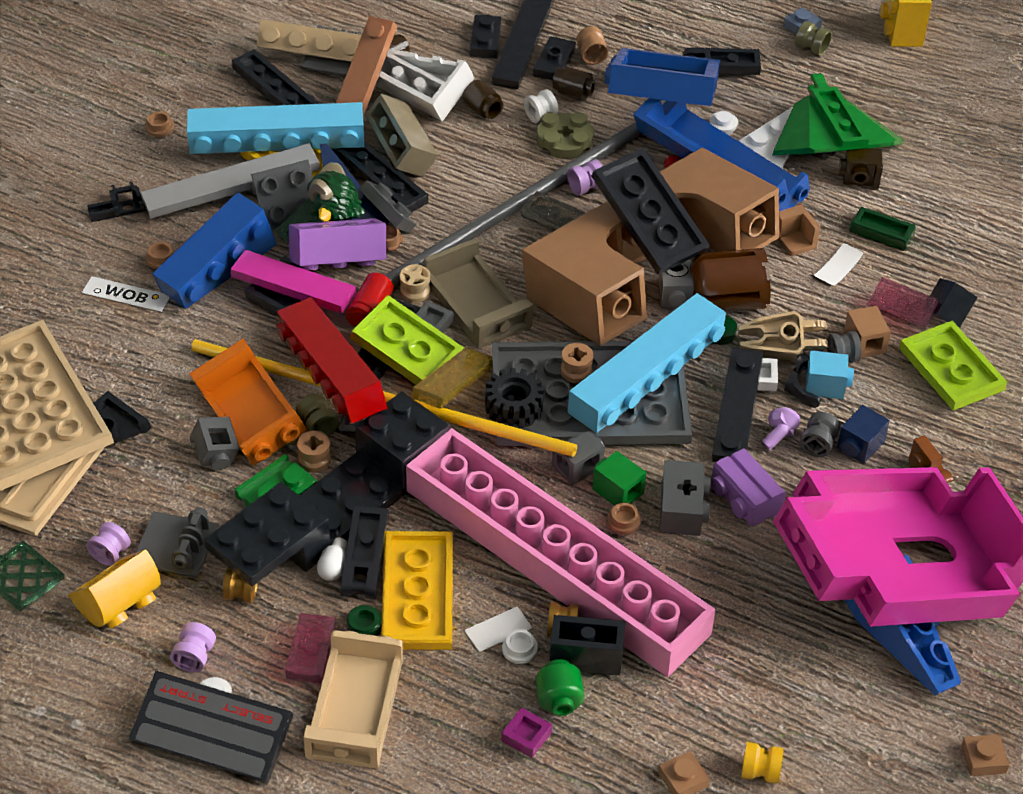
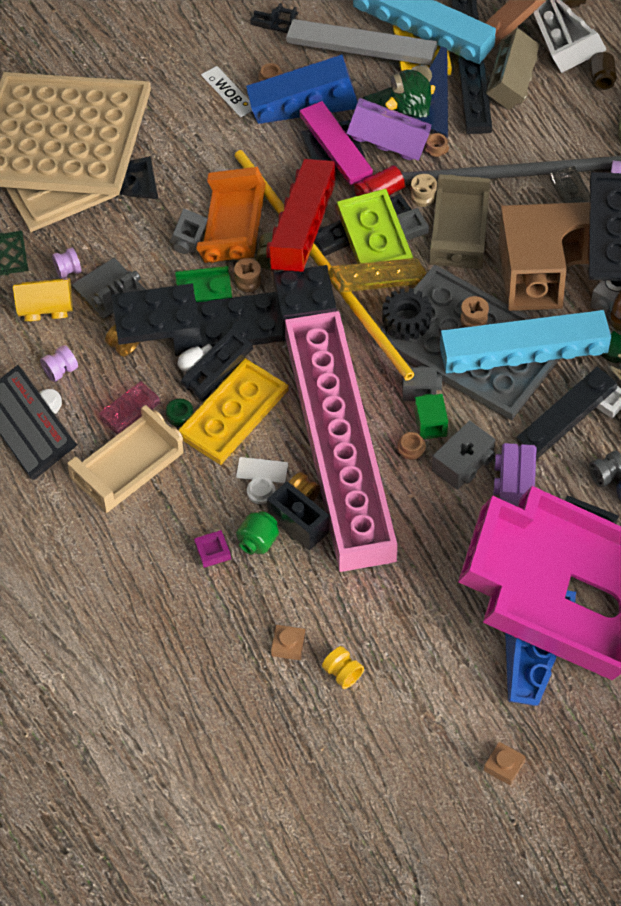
camera: 40 degrees right, 10 degrees up
(282, 190) = (381, 65): dark grey hinge -> none
(395, 212) = (453, 120): dark grey plate -> none
(784, 423) = (590, 445): lavender plate -> none

